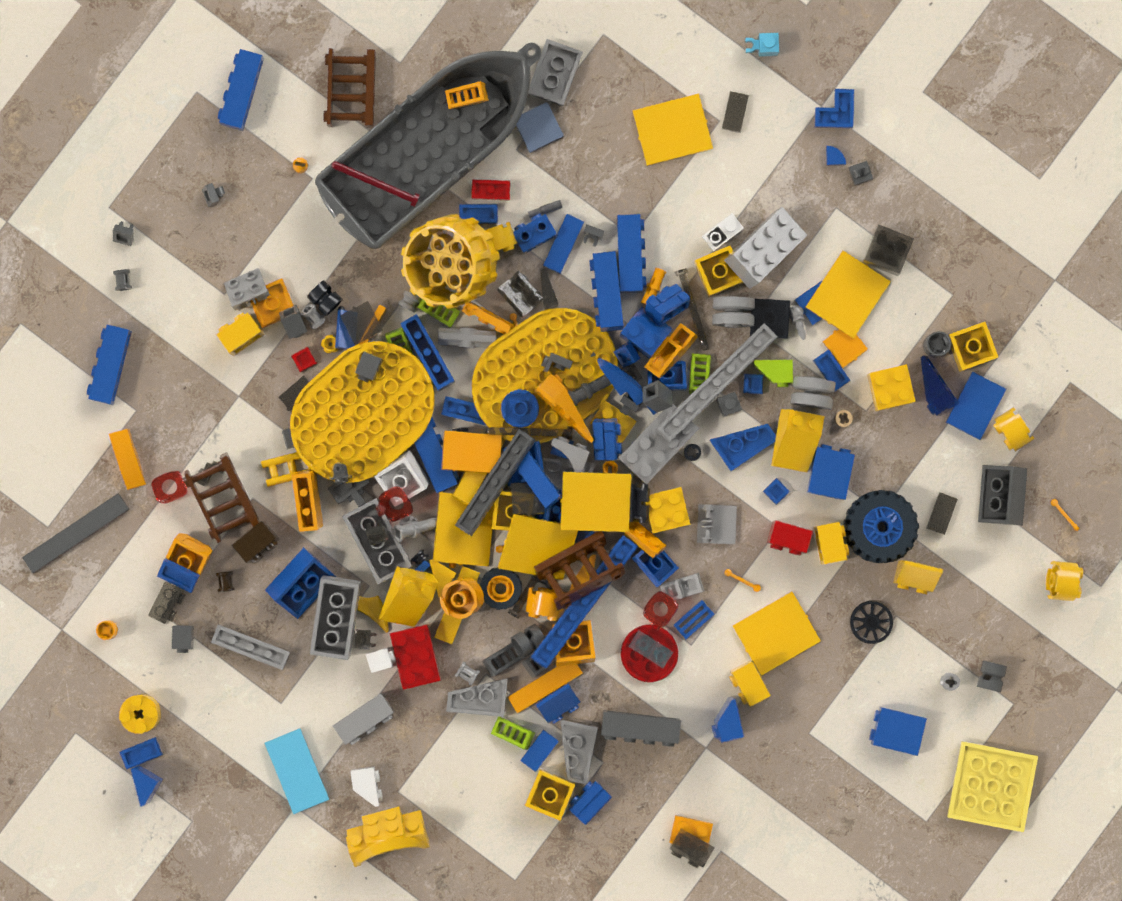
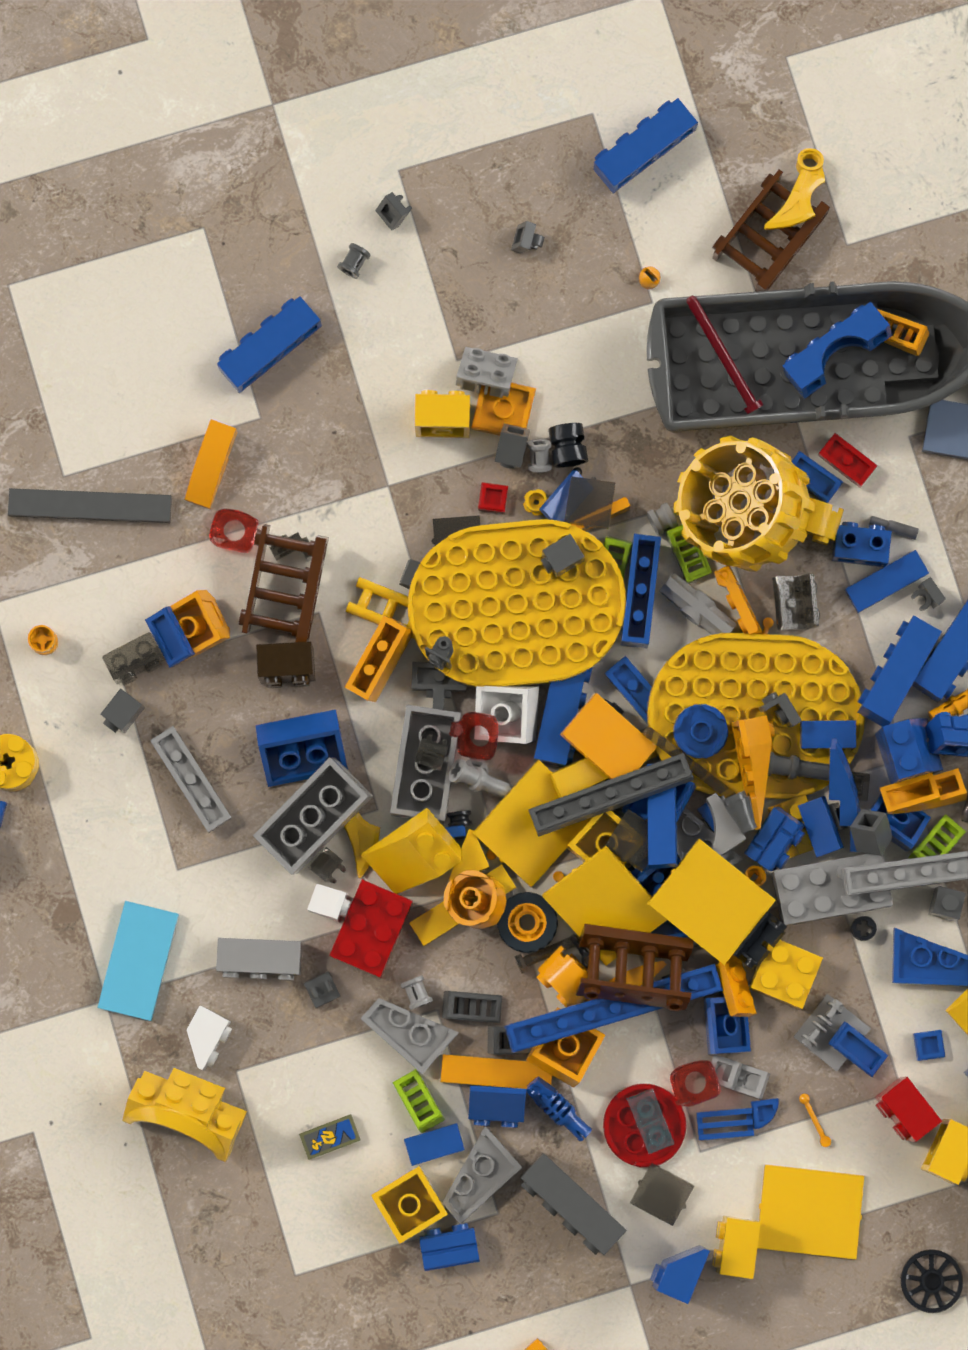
camera: 35 degrees right, 5 degrees down
(225, 581) = (217, 683): dark brown bush -> none
(355, 61) = (798, 205): none -> yellow piece
(412, 710) = (322, 989): none -> dark grey tile
(444, 109) = (862, 329): none -> blue arch
(477, 789) = (329, 1137): none -> tile
(527, 641) = (511, 1006): dark grey wheel -> none
(549, 298) = (828, 625): clear smoke slope -> none
(575, 438) = (741, 811): none -> dark grey cone
(588, 360) = (820, 733): none -> blue tile
(593, 679) = (557, 1107): none -> blue hinge
(626, 413) = (820, 826): none -> blue tile
(627, 354) = (869, 759): blue bracket -> none
(686, 684) = (662, 1194): none -> clear smoke piece
(710, 596) = (763, 1111): none -> blue tile
(737, 523) = (858, 1049): none -> blue tile

